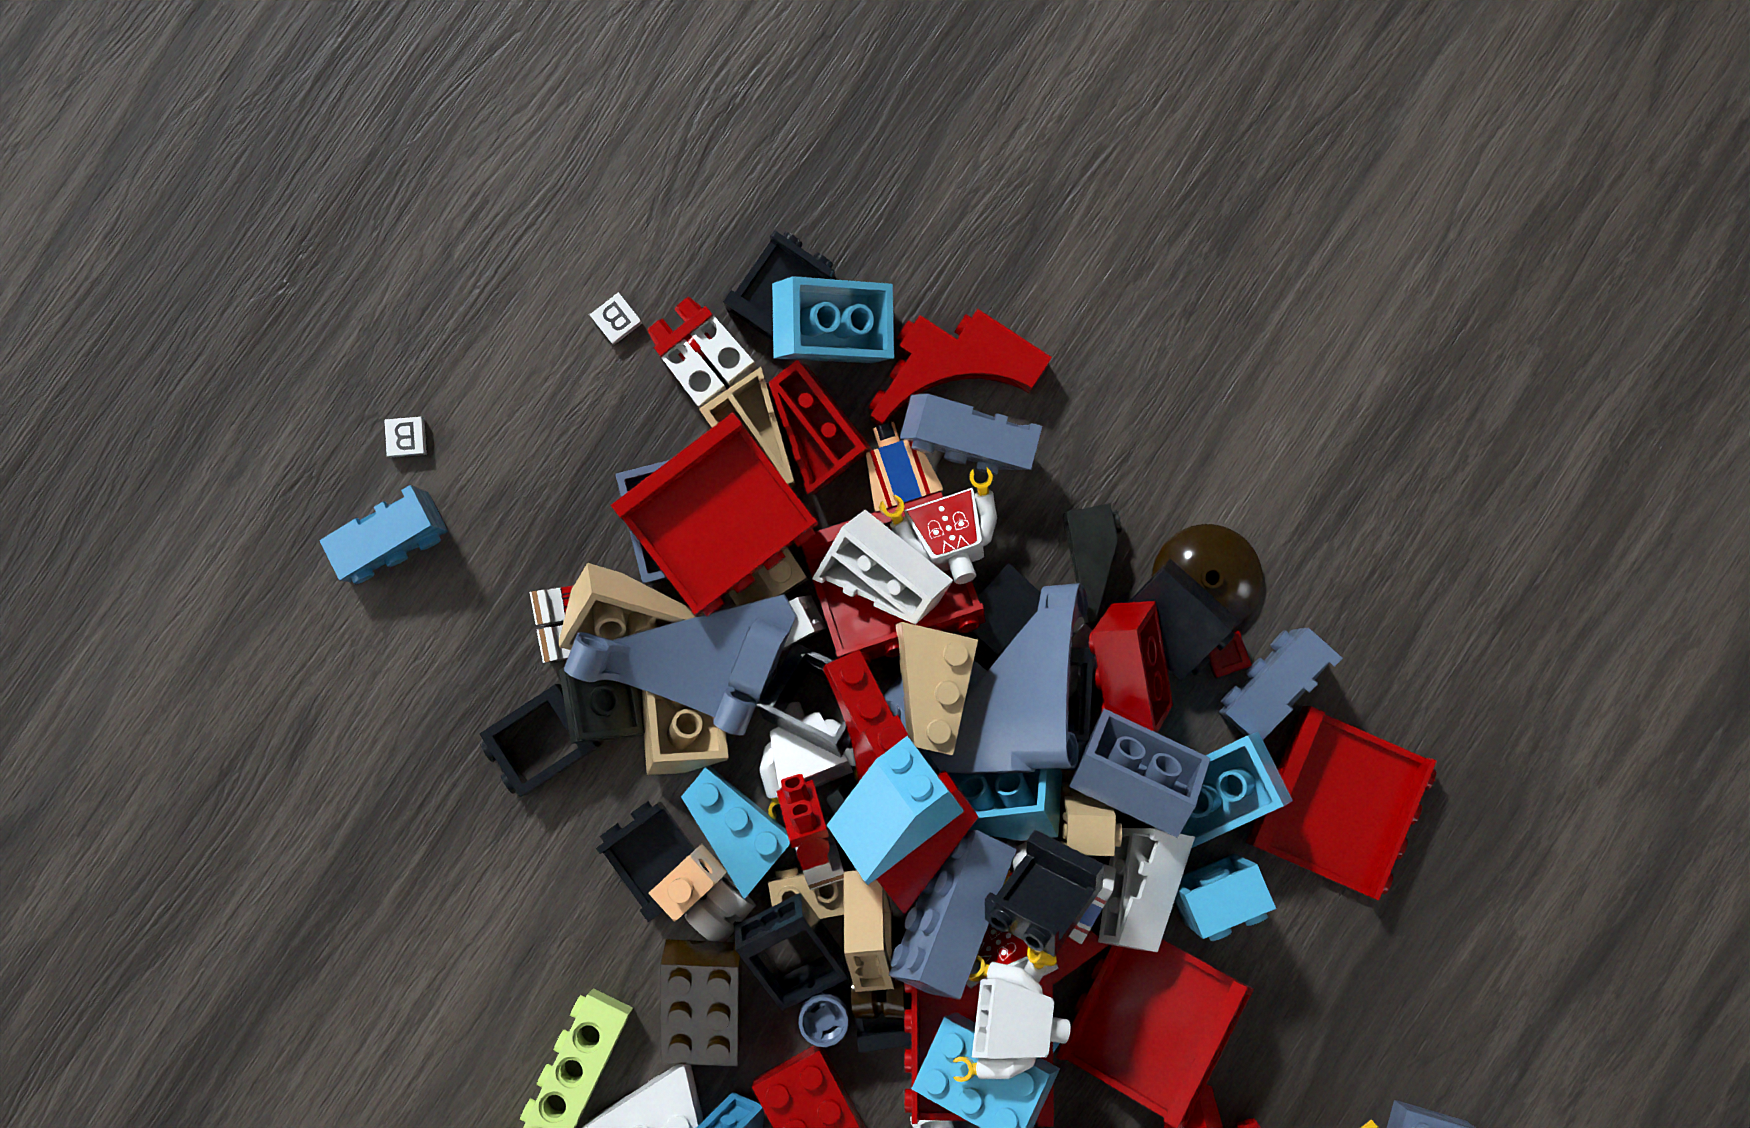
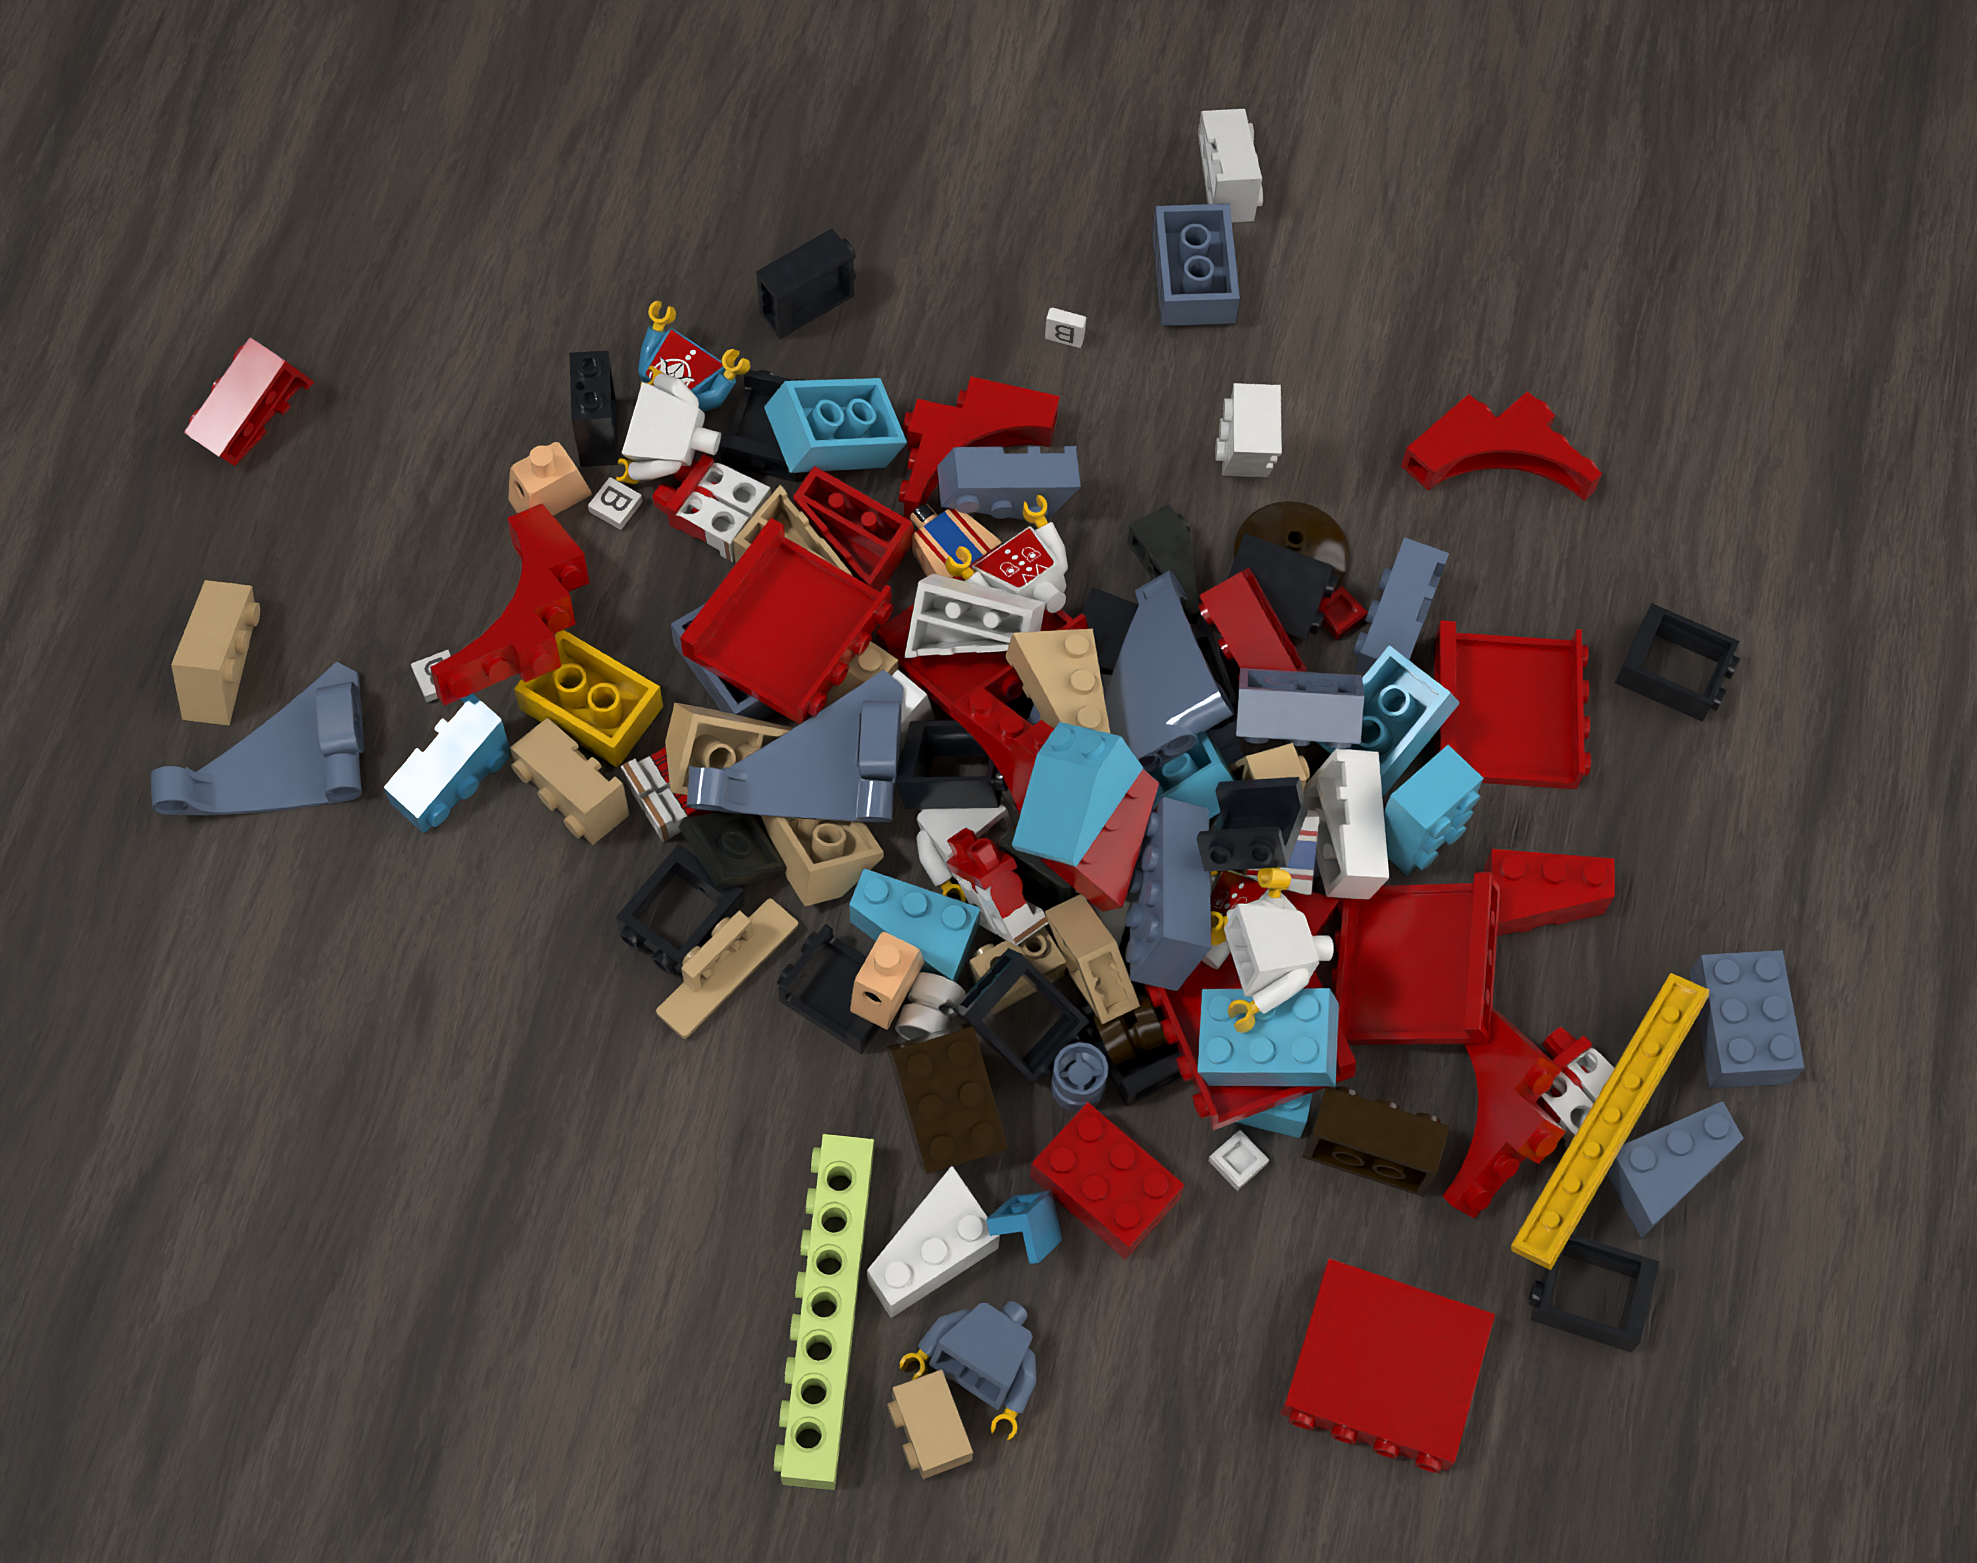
camera: 25 degrees left, 20 degrees down
(216, 349) = (214, 652): none -> tan wedge
(252, 475) = (290, 762): none -> sand blue panel
(313, 104) = (245, 401): none -> wedge
(483, 584) = (569, 781): none -> tan wedge
(498, 424) = (524, 634): none -> red arch
(524, 512) = (592, 699): none -> yellow brick
(559, 284) = (548, 479): none -> light nougat torso
(562, 804) = (724, 964): none -> tan bracket
(619, 239) = (594, 408): none -> black window
(675, 273) = (664, 430): none -> white torso
(715, 208) = (681, 358): none -> torso
(862, 156) = (806, 283): none -> black window
(1087, 280) = (1065, 327): none -> white tile
(1210, 470) = (1250, 430): none -> white wedge
(1233, 258) = (1195, 264): none -> sand blue brick
(1298, 991) = (1549, 888): none -> red wedge
(1309, 158) = (1230, 162): none -> white wedge
(1464, 542) = (1518, 439): none -> red arch
(1485, 788) = (1689, 636): none -> black window

